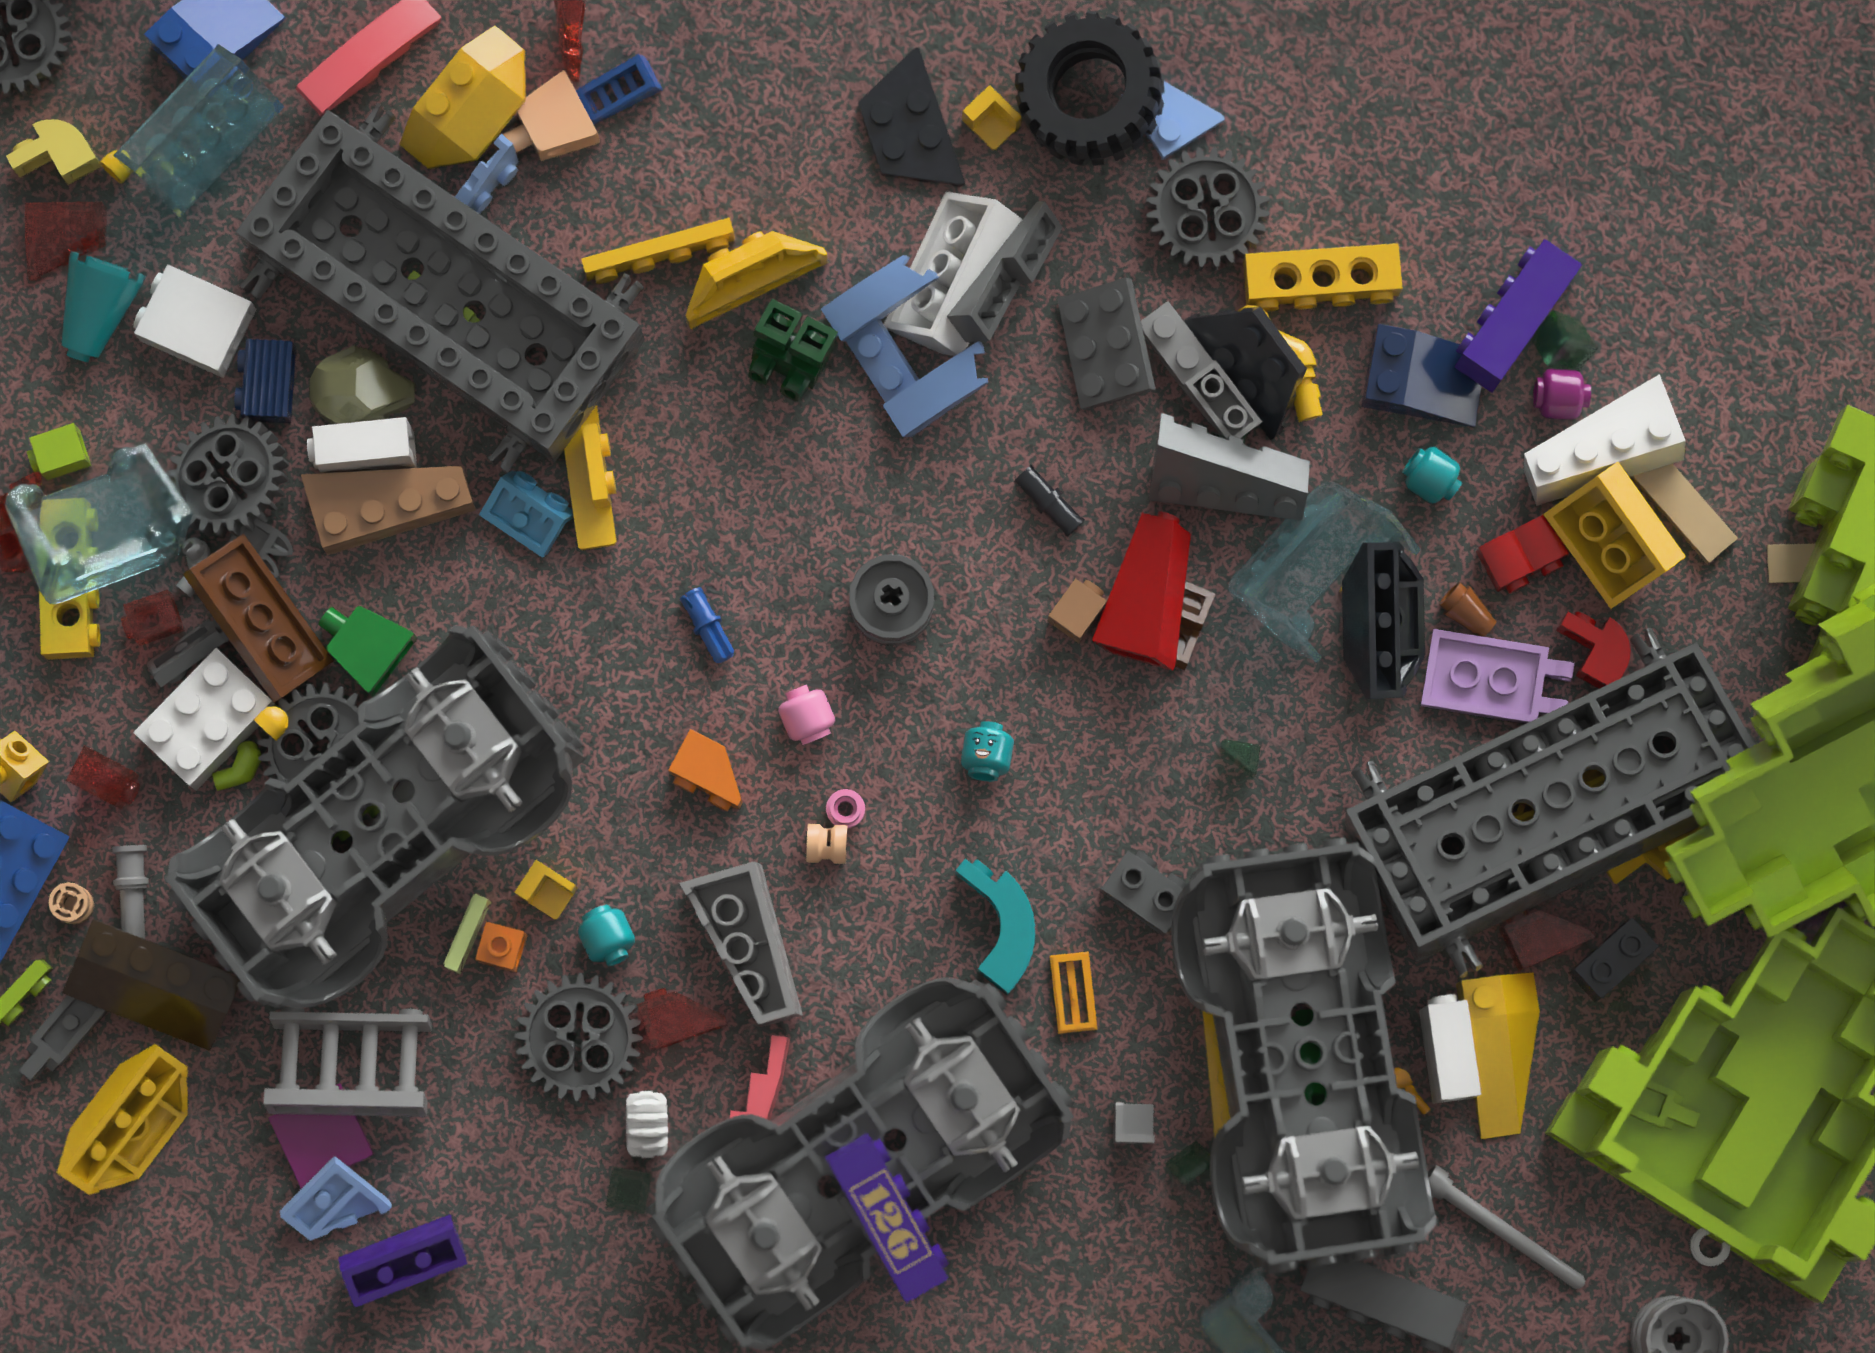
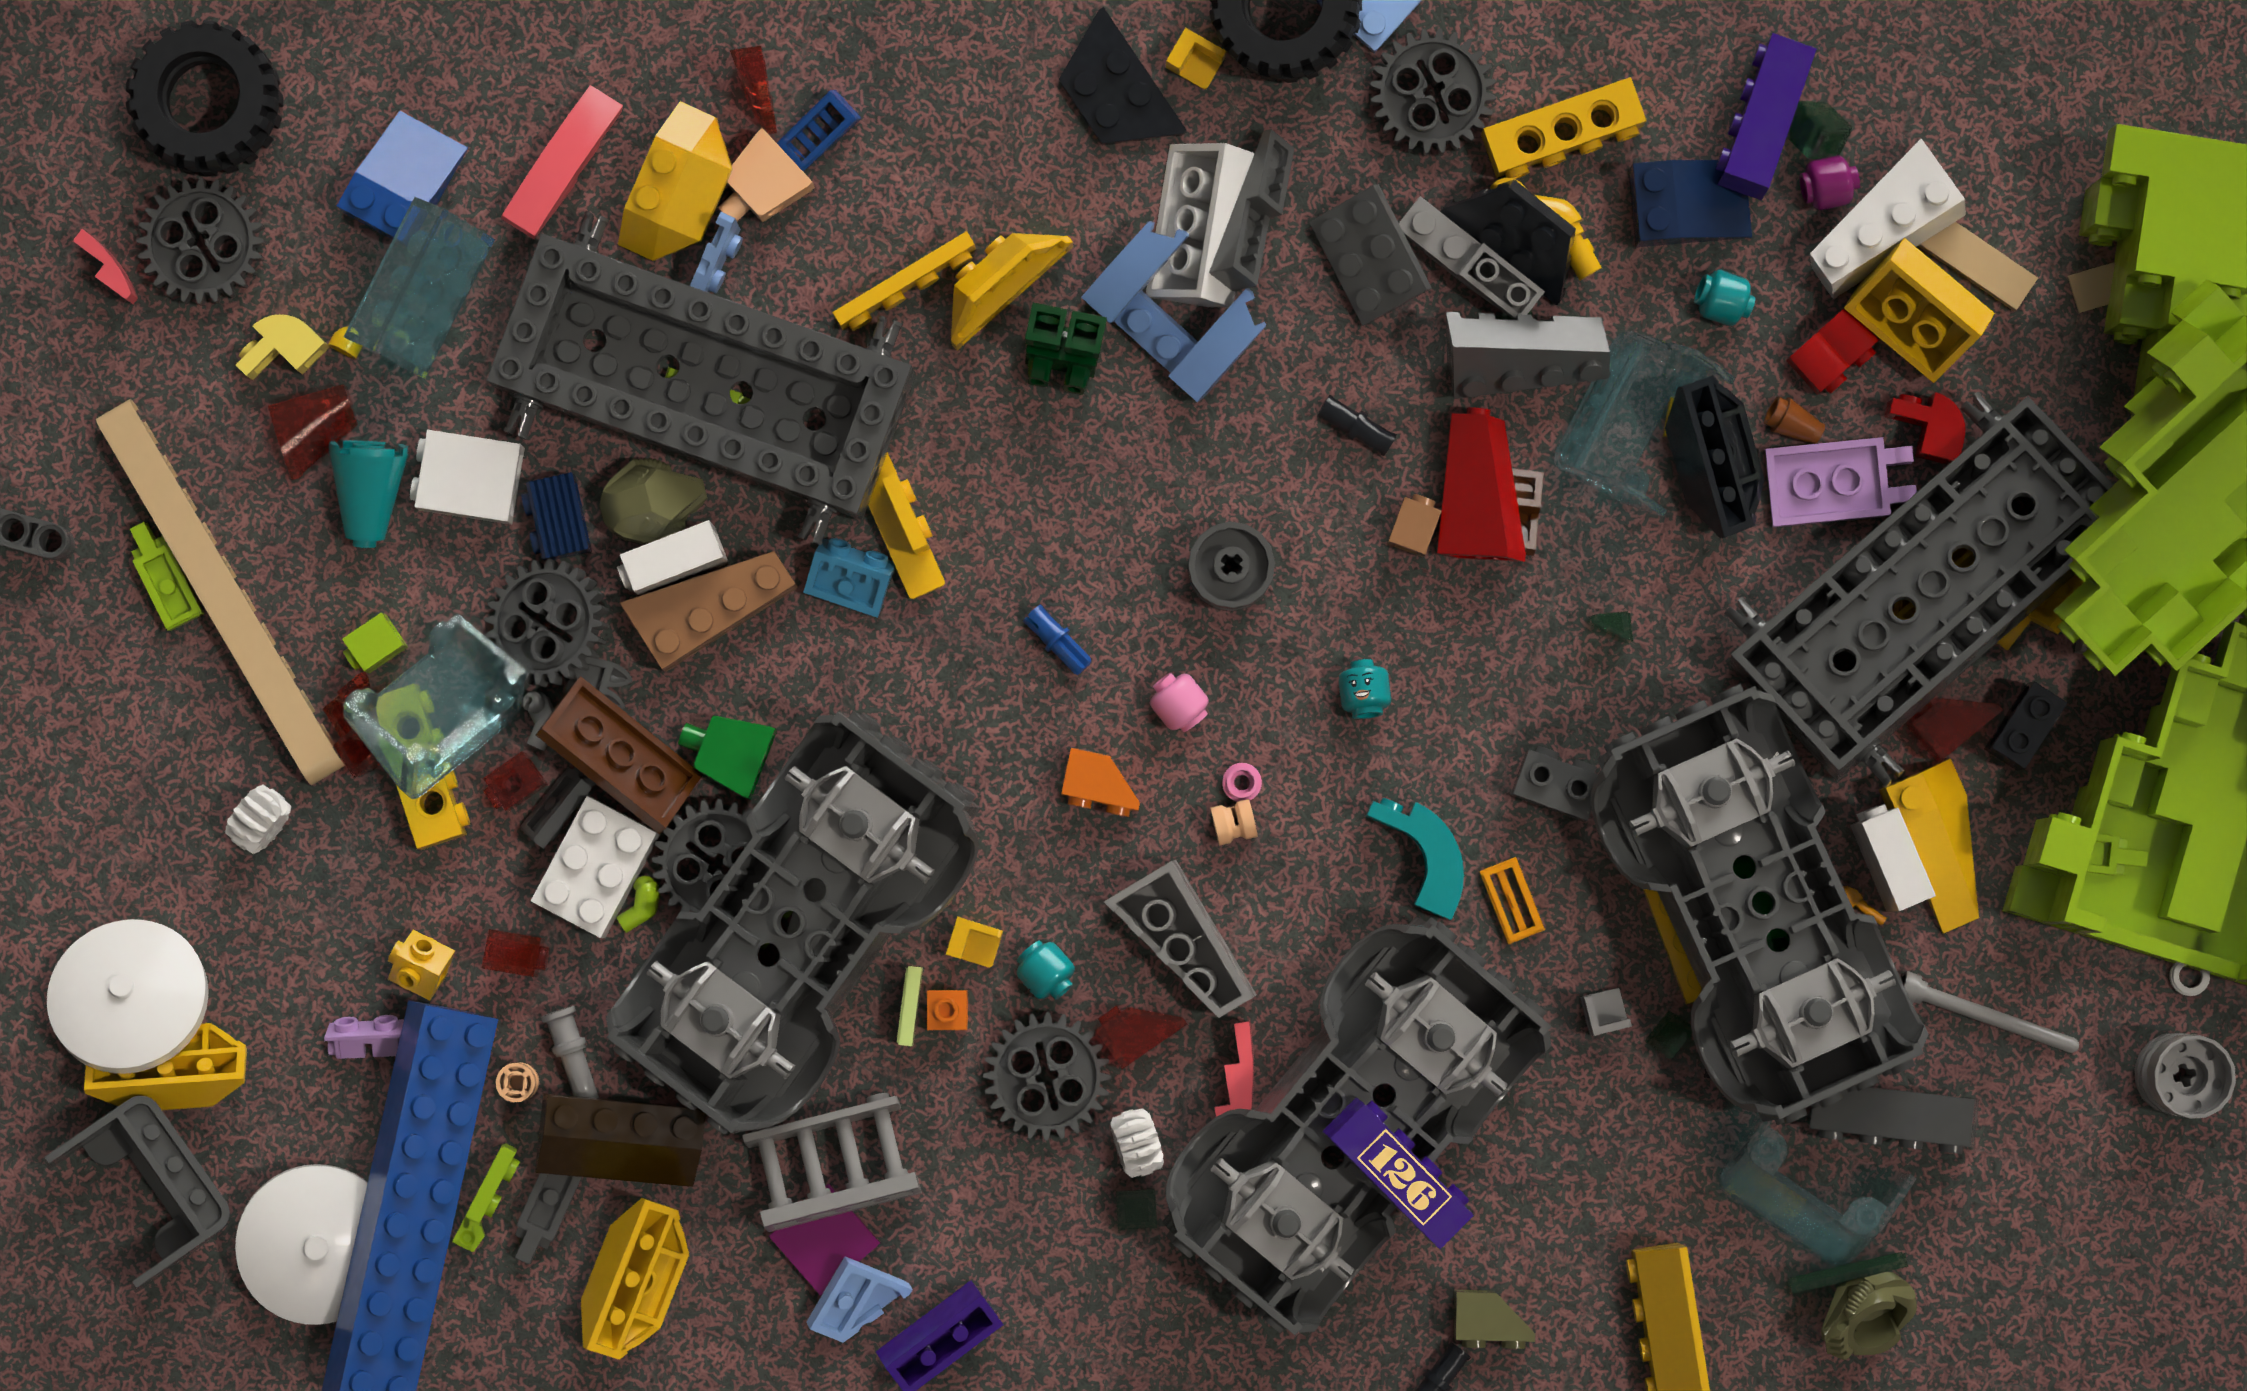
camera: 15 degrees left, 5 degrees up
(273, 721) = (664, 853): yellow hinge -> none

